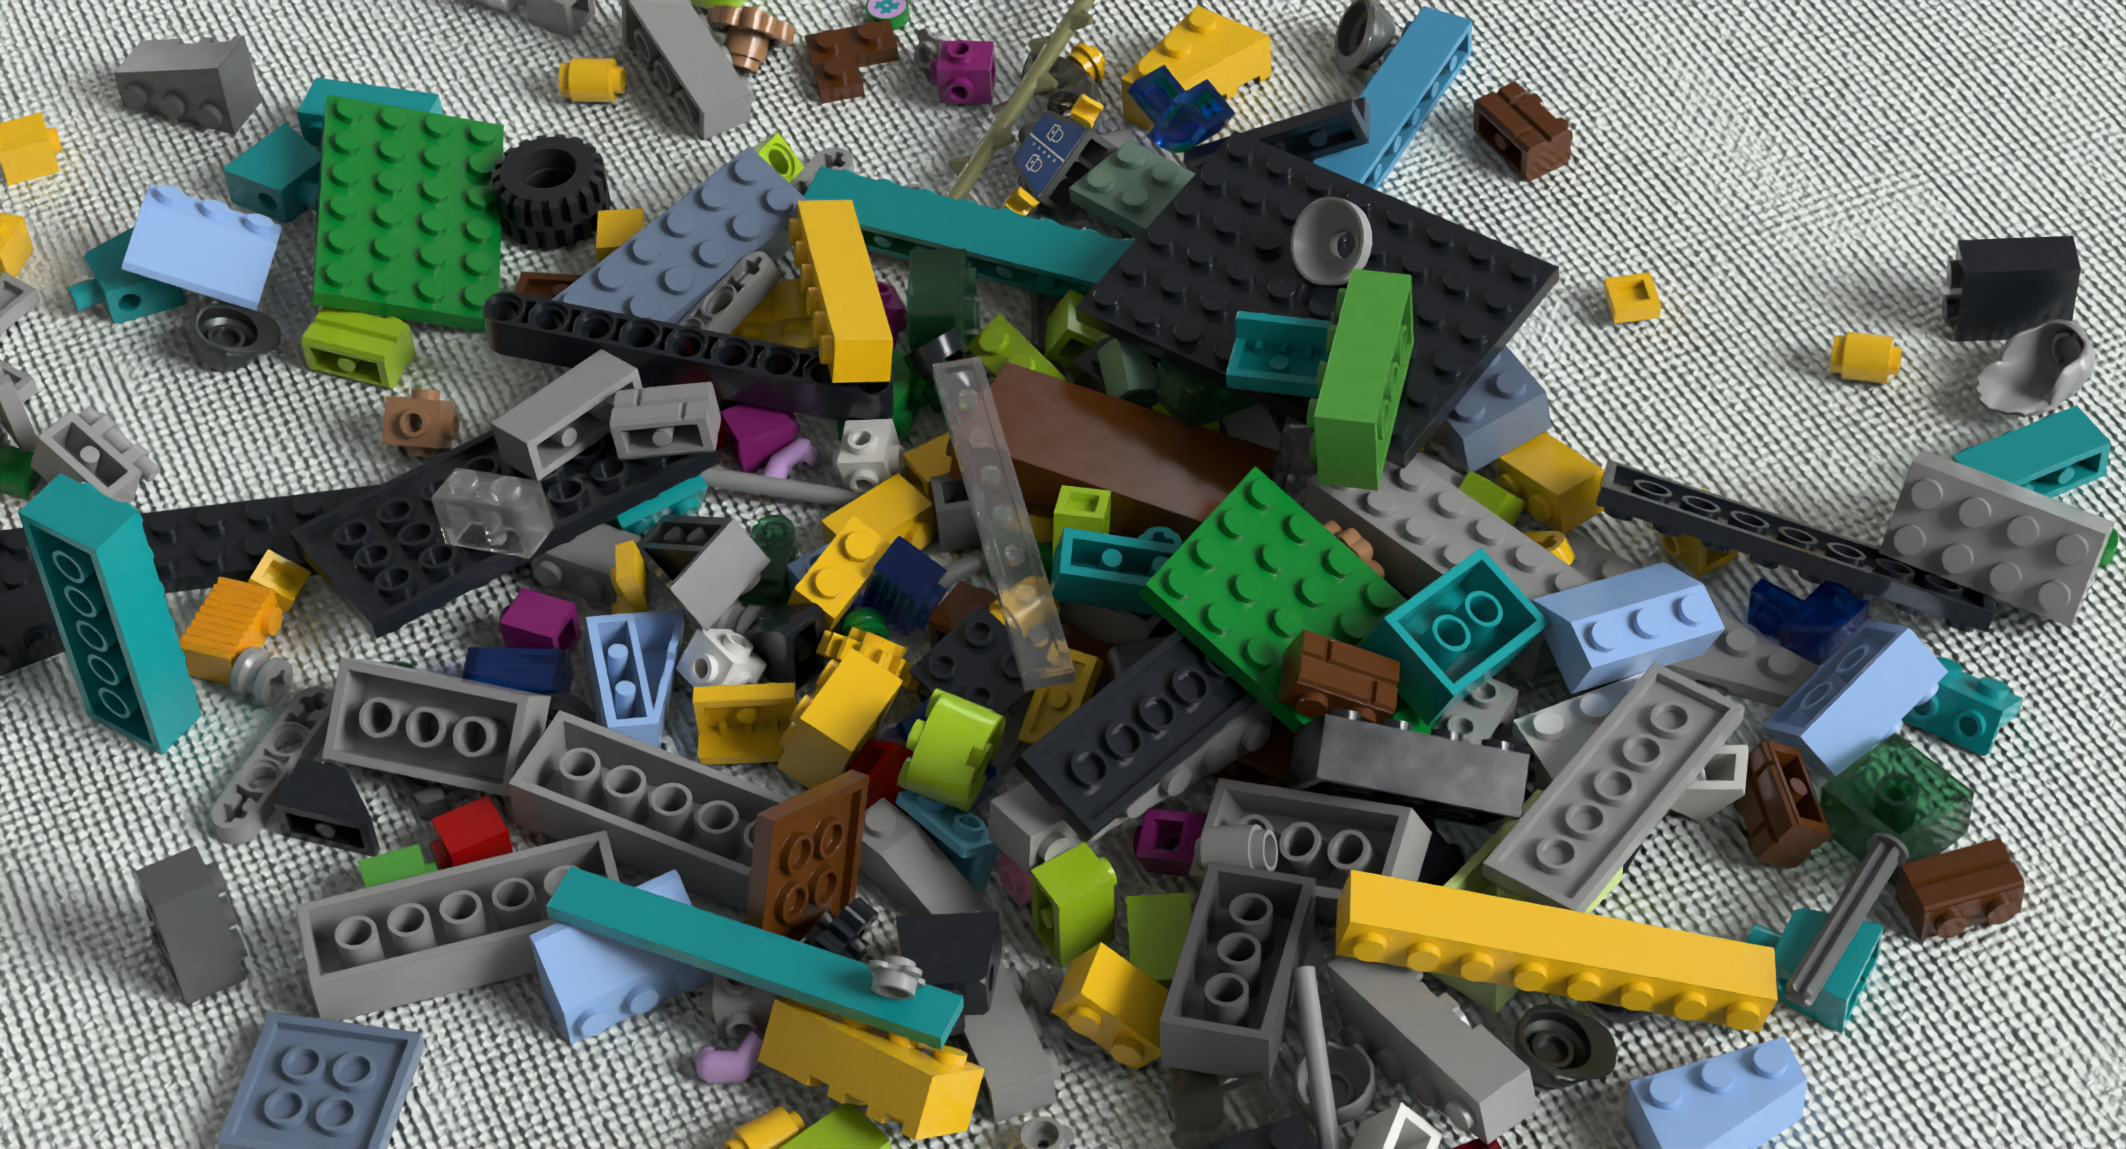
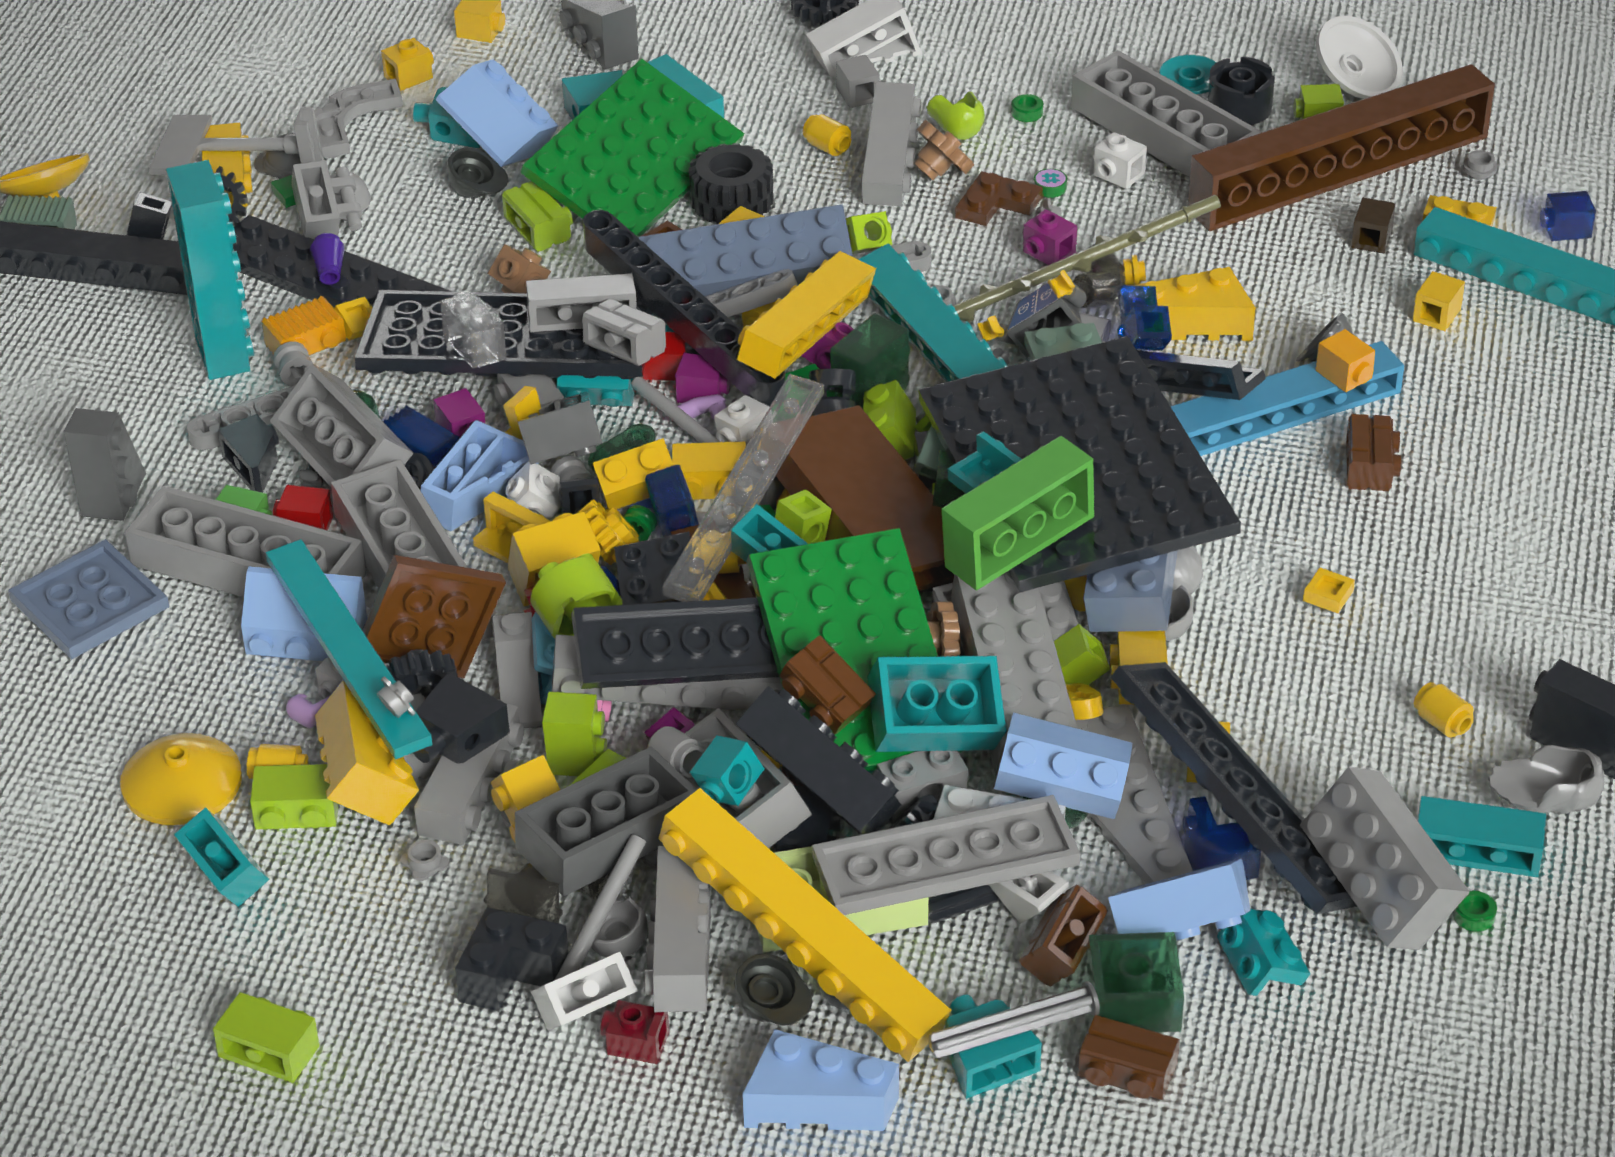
camera: 35 degrees right, 5 degrees down
(177, 526) = (328, 257): none -> dark purple cone
(1316, 240) = (1096, 423): light grey piece -> none
(1329, 837) = (727, 770): none -> teal brick
(1427, 44) = (1345, 360): none -> light orange brick

